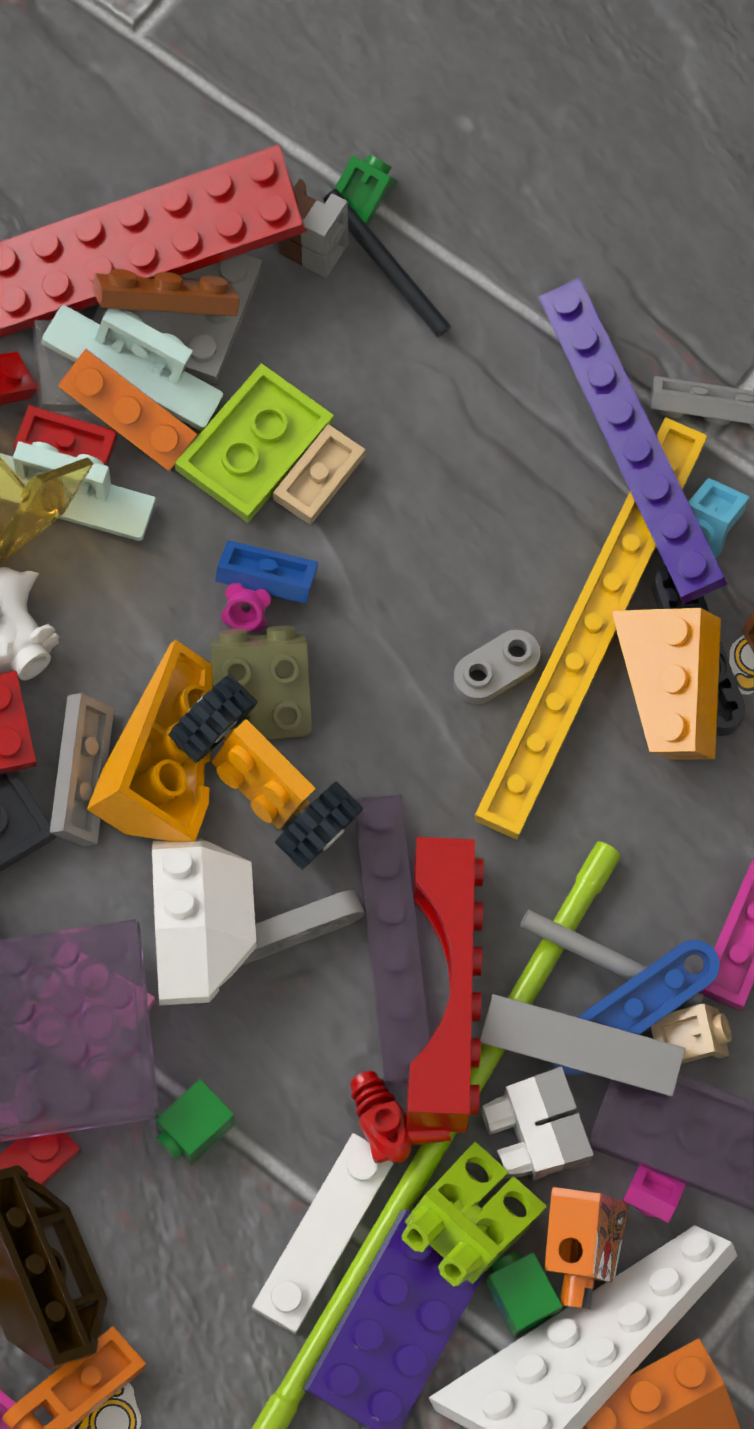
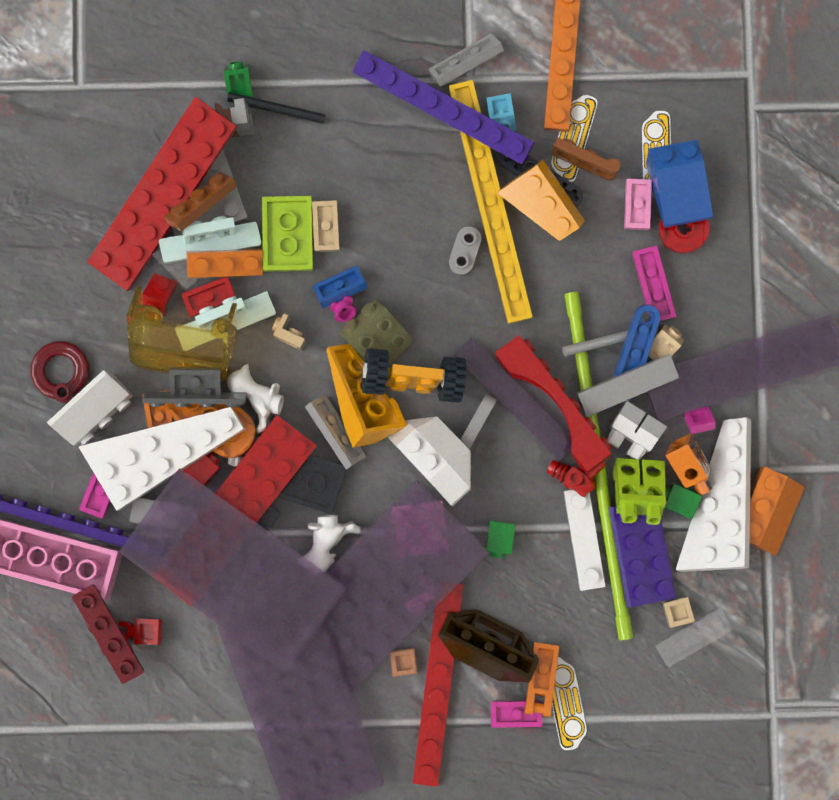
camera: 35 degrees left, 15 degrees up
(132, 580) = (291, 337): none -> tan bracket

